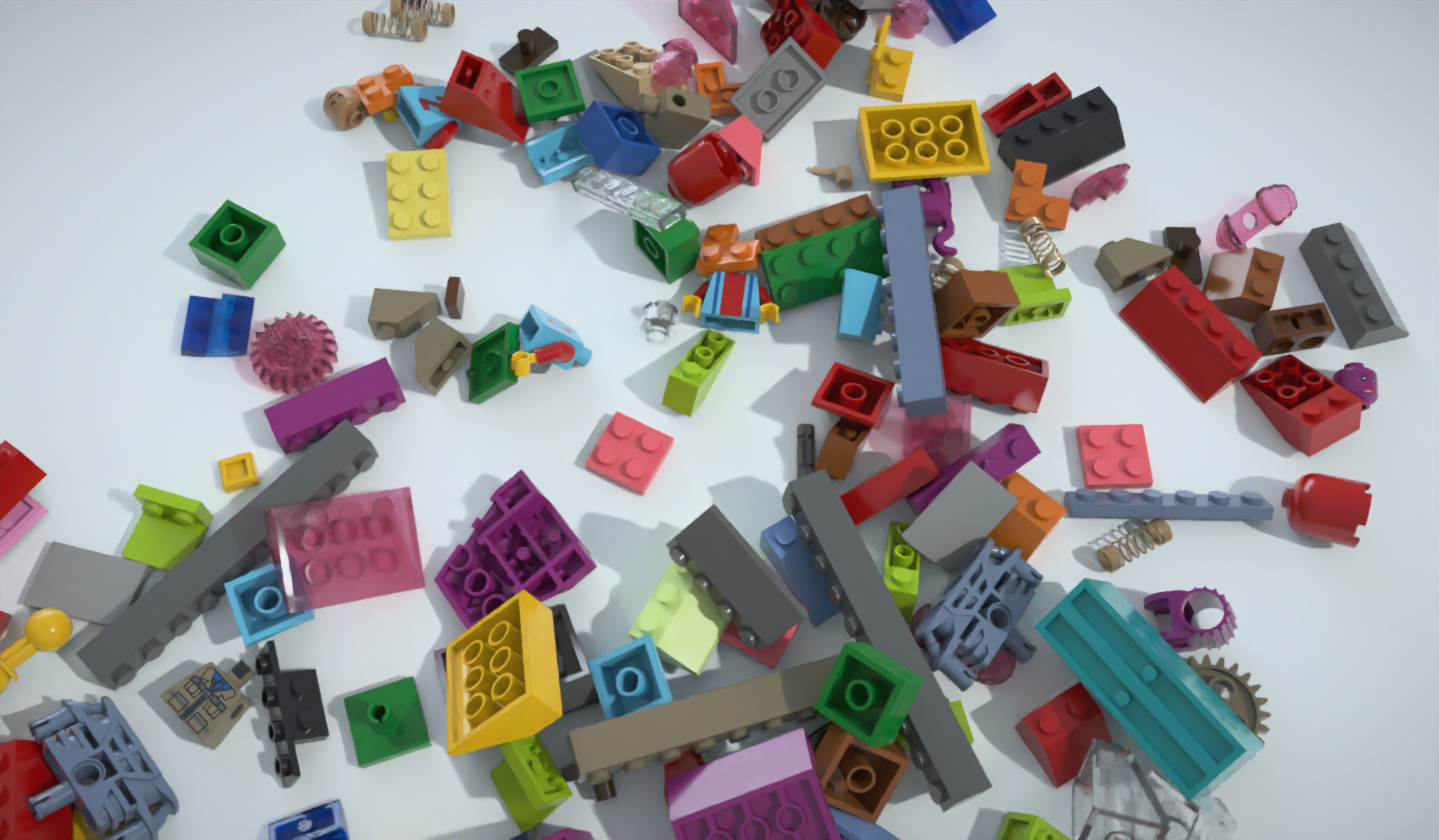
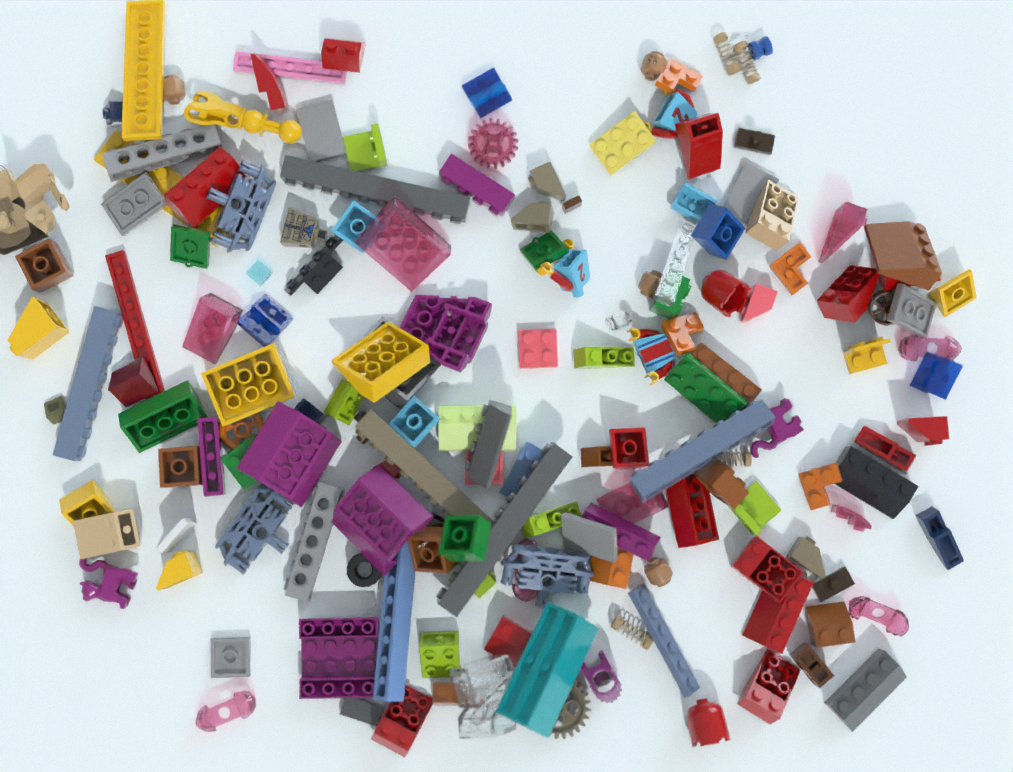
camera: 60 degrees right, 20 degrees up
(228, 813) = (259, 273): none -> clear light blue tile
(237, 244) = (535, 71): green brick -> none
(238, 472) = (416, 161): yellow tile -> none
(387, 722) = (338, 316): green tile -> none
(549, 91) = (727, 174): green tile -> none
(634, 256) = (649, 283): none -> medium nougat head
(674, 64) = (780, 236): clear pink piece -> none
(675, 115) = (751, 254): dark tan torso -> none
(779, 88) = (805, 303): light grey tile -> none
(805, 450) = (588, 439): dark grey axle -> none
(842, 174) = (775, 367): tan hand -> none
(860, 306) = (686, 423): medium azure slope -> none
(889, 485) = (590, 490): red slope -> none
(922, 141) = (816, 403): yellow slope -> none
(1027, 45) = (926, 429): none -> red slope
(1048, 258) = (778, 514): tan piece -> none
(1059, 459) = (658, 571): none -> medium nougat head
(1114, 456) = (679, 600): coral plate -> none
(1123, 315) = (767, 569): none -> red slope
(1177, 104) = (940, 537): none -> dark blue slope
(1359, 381) = (795, 713): magenta head -> none

